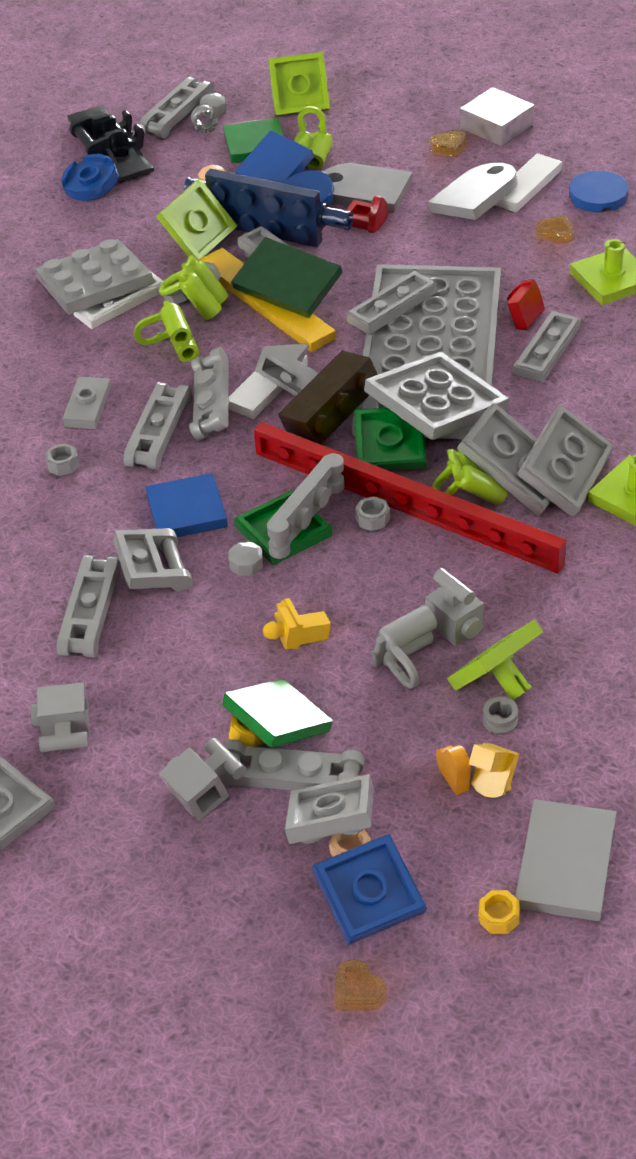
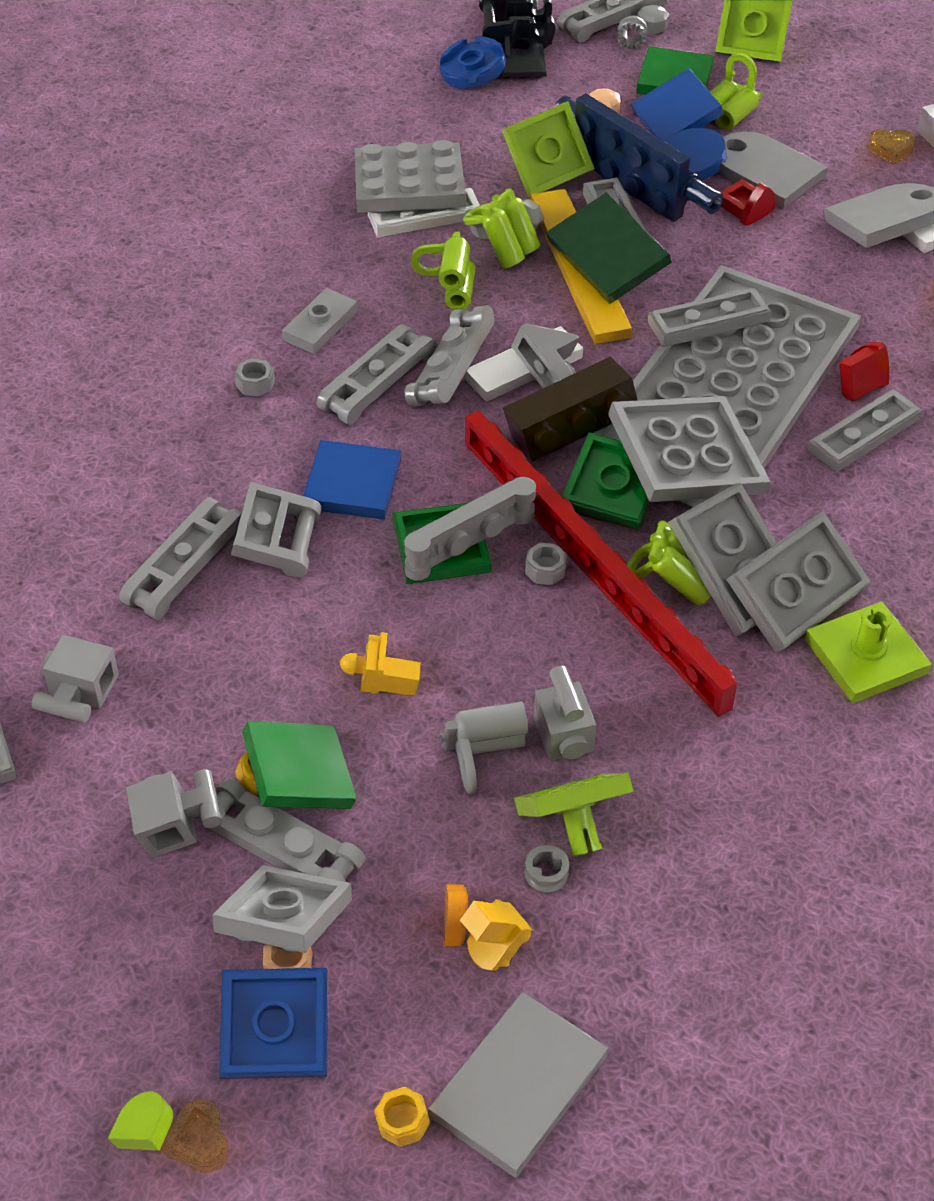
camera: 20 degrees right, 5 degrees up
(245, 559) = (378, 565): light grey tile -> none
(313, 992) = (142, 1123): none -> lime tile

